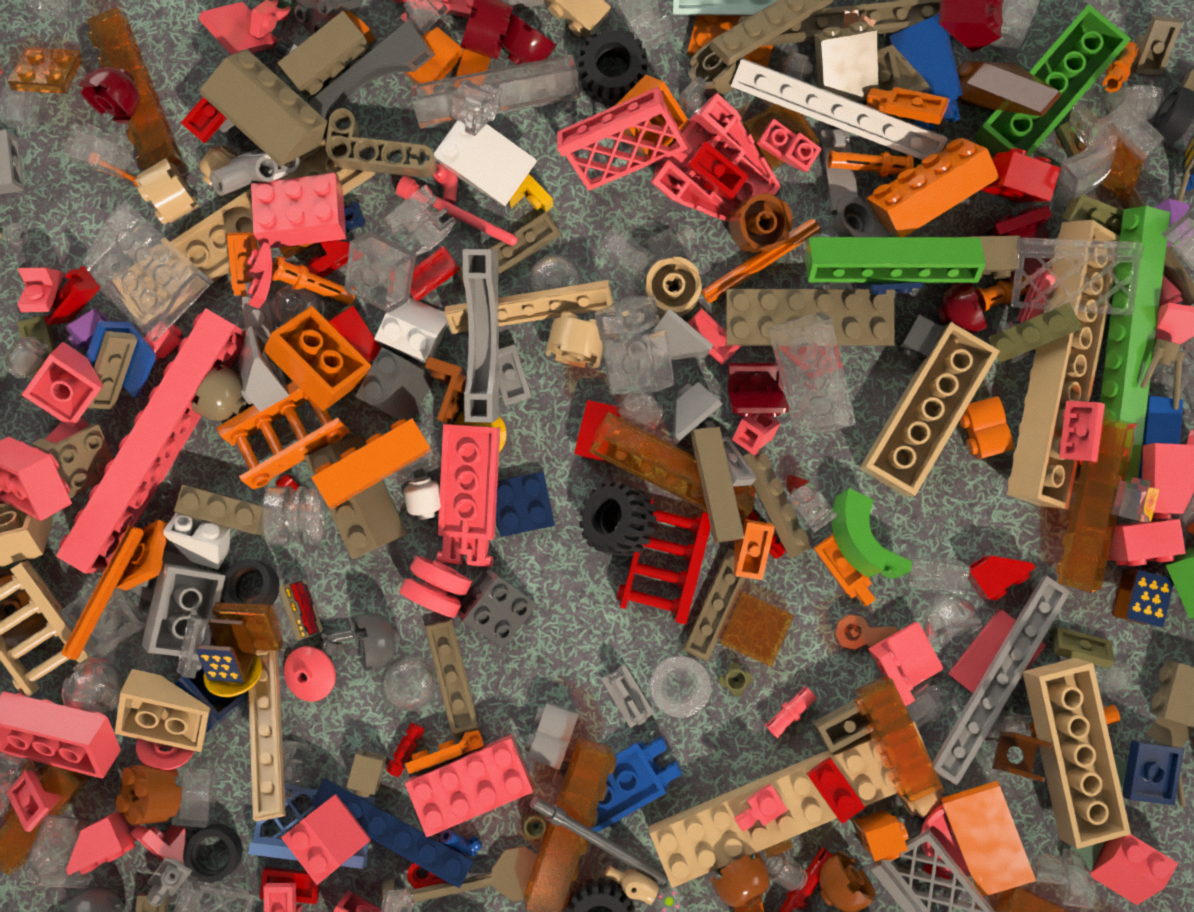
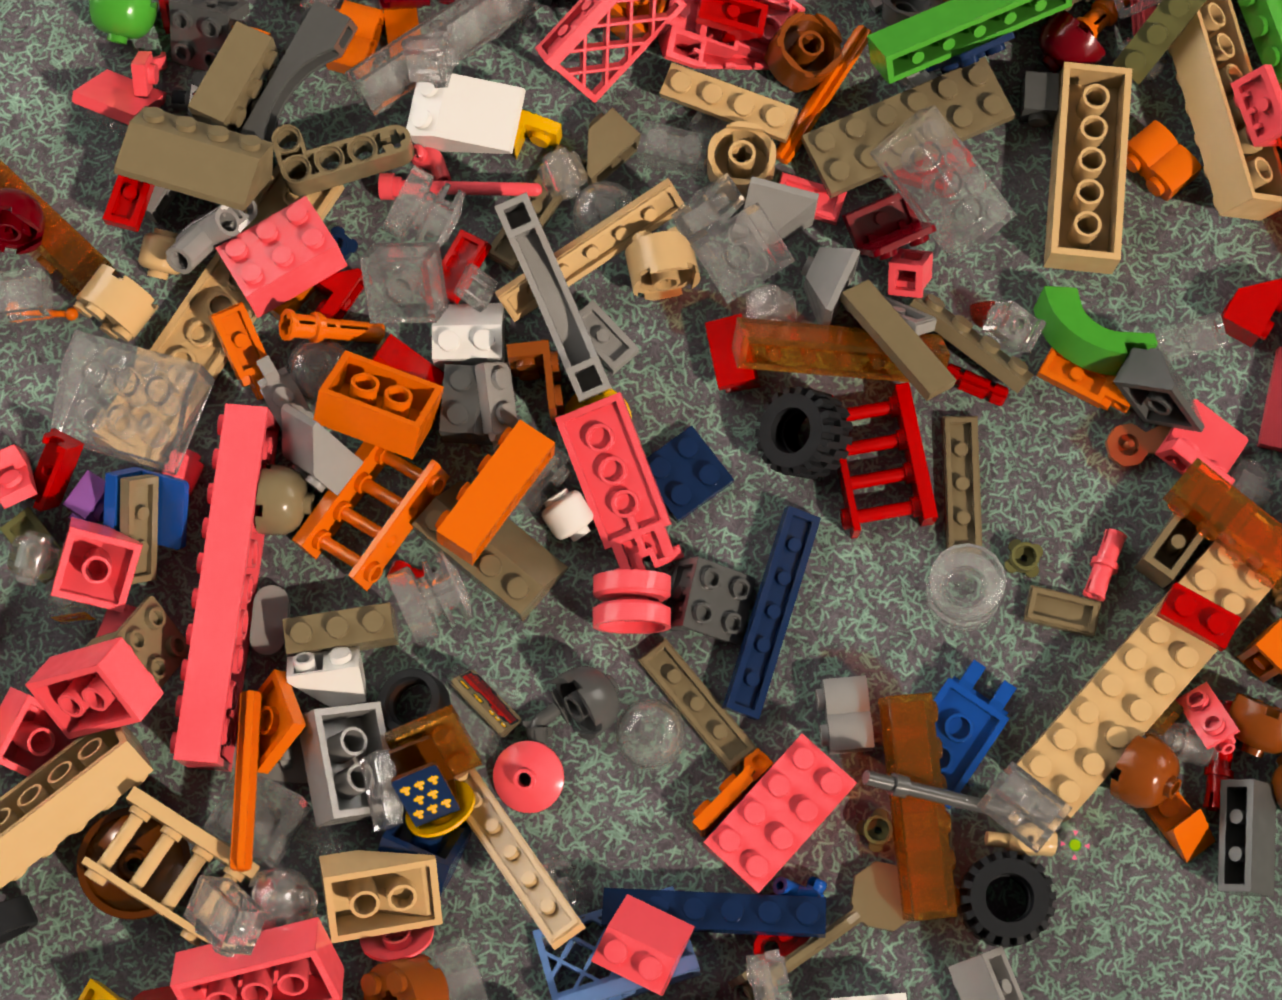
camera: 25 degrees left, 10 degrees down
(41, 687) = (225, 915): none -> clear brick
(182, 470) = (266, 631): none -> light grey tile
(261, 271) = (272, 340): coral slope -> none
(366, 773) = (651, 859): dark tan brick -> none
(405, 749) = (682, 813): red axle -> none
(408, 391) = (495, 399): none -> light grey hinge
(432, 297) = (475, 287): none -> clear tile
(534, 636) = (771, 613): none -> dark blue plate
(535, 238) = (562, 173): none -> clear head
(582, 229) = (609, 144): none -> dark tan slope
(628, 696) = (910, 633): light grey hinge -> none
(641, 868) = (1024, 807): none -> clear brick
(684, 237) = (727, 101): none -> tan plate
(744, 730) = (1062, 611): none -> dark tan tile
(753, 549) = (972, 401): orange slope -> none
(756, 629) = (1019, 491): clear orange plate -> none
(763, 806) = (1128, 672): coral plate -> none
(807, 862) = (1209, 718): none -> coral hinge
(893, 607) = (1157, 391): none -> dark grey slope
(950, 618) = (1229, 376): clear cylinder -> none

